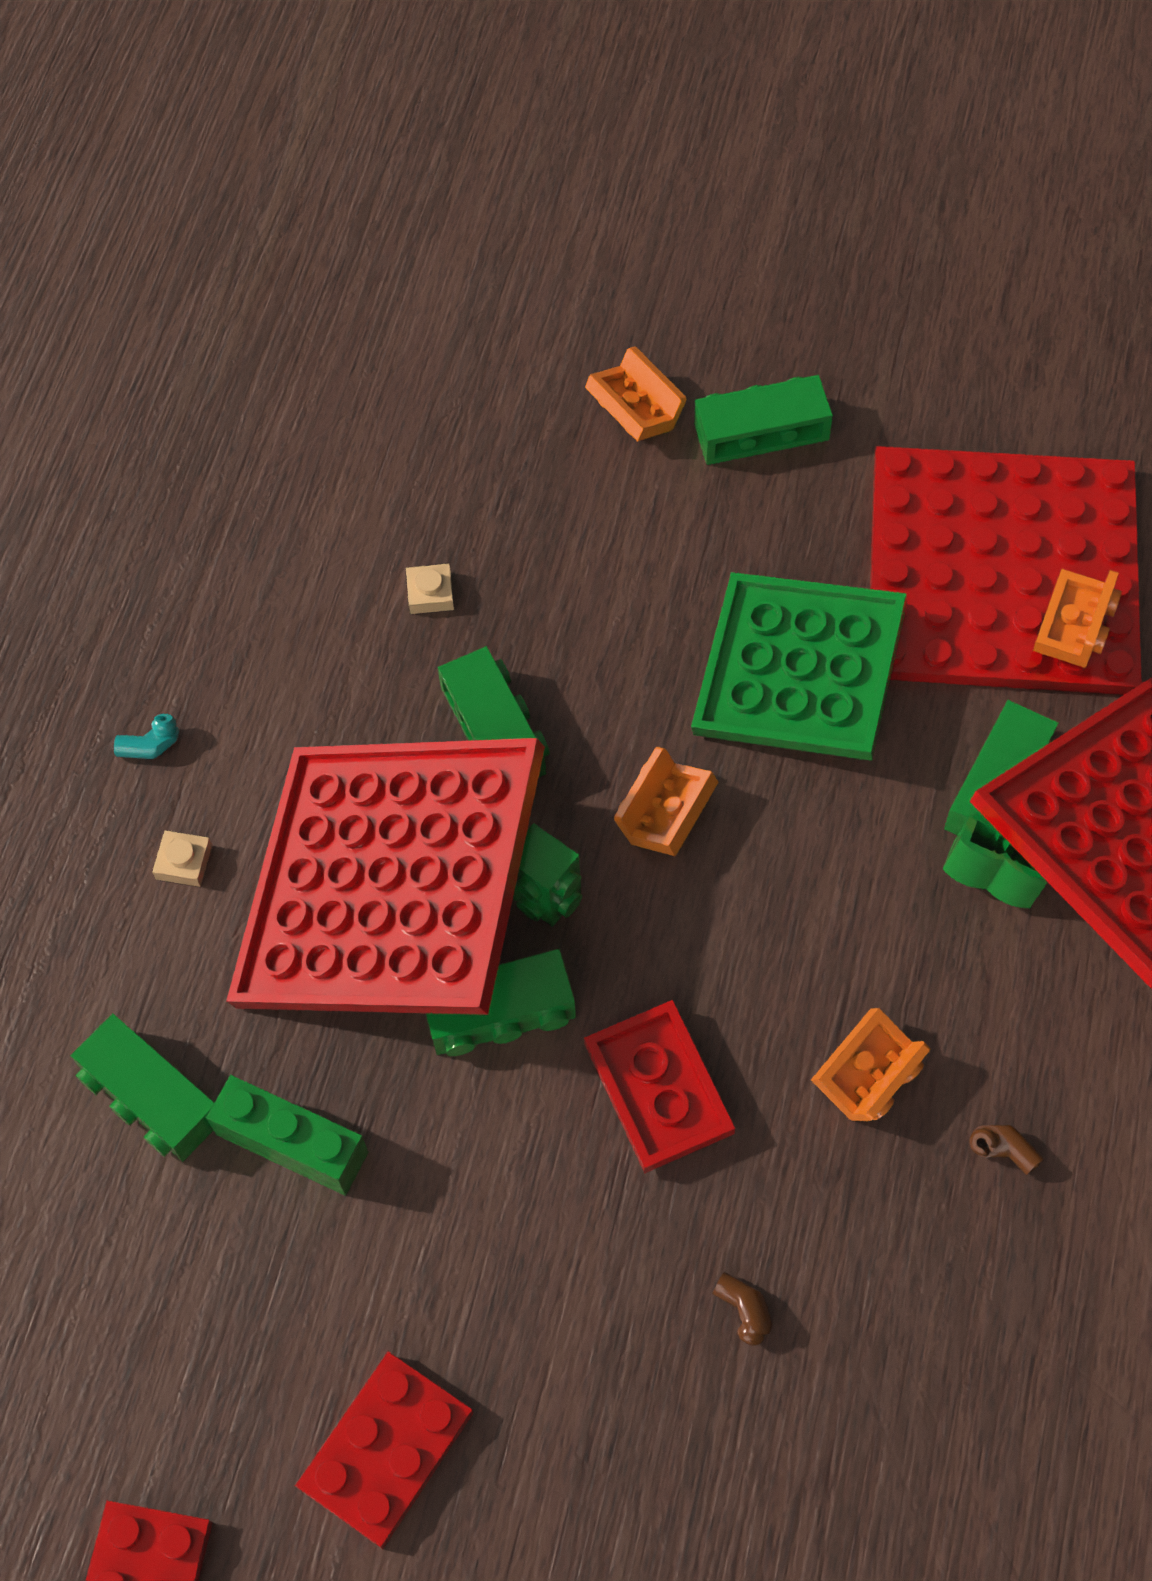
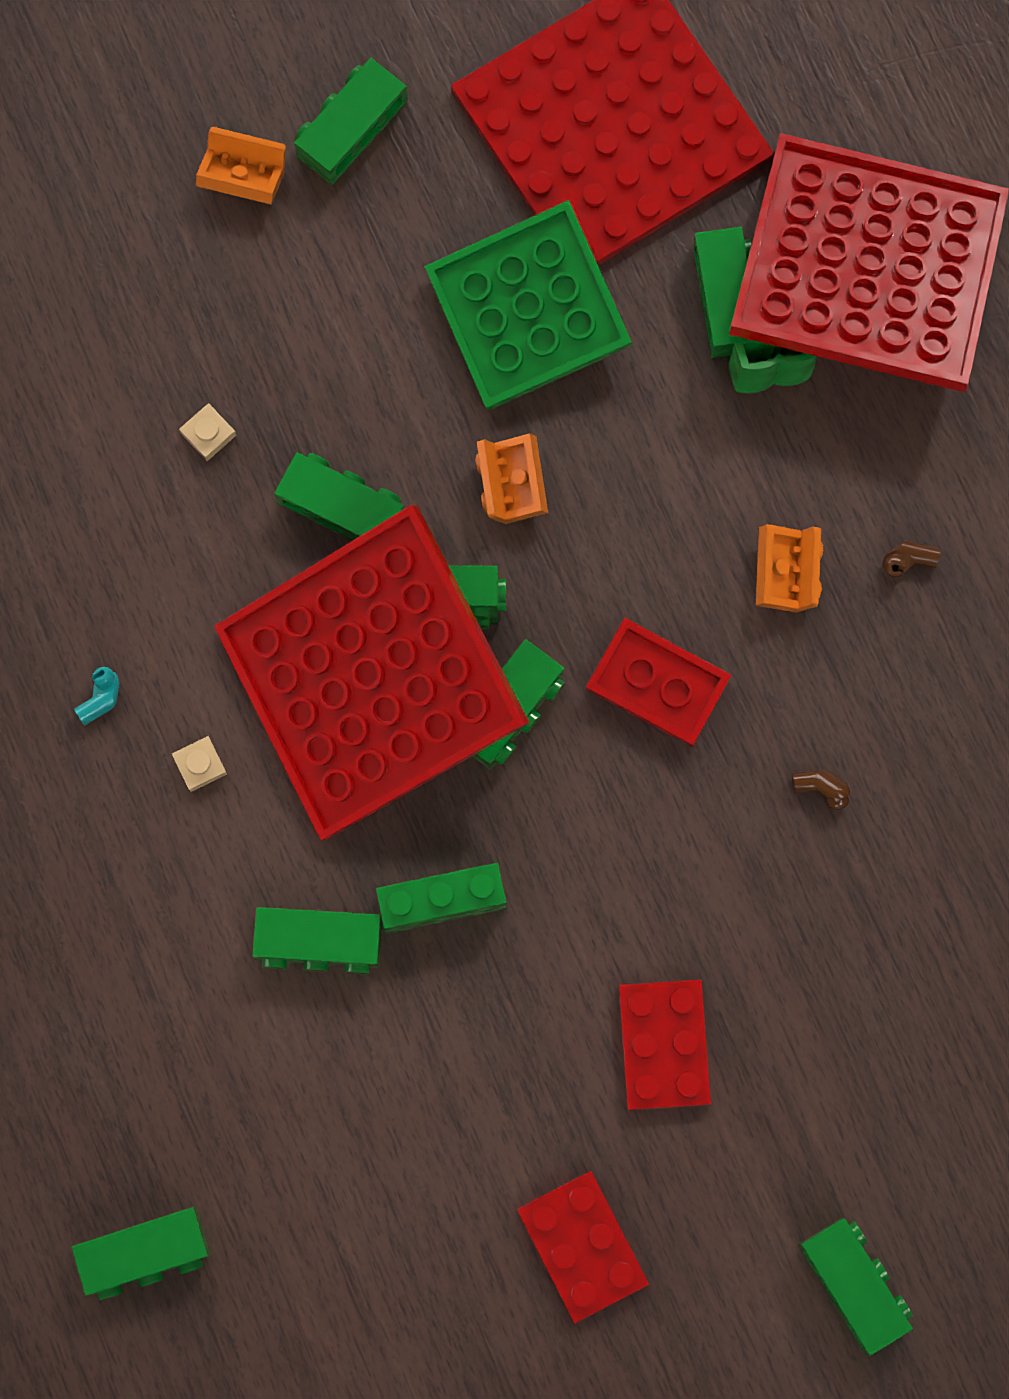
camera: 40 degrees left, 15 degrees up
(1075, 617) = (699, 133): orange bracket -> none

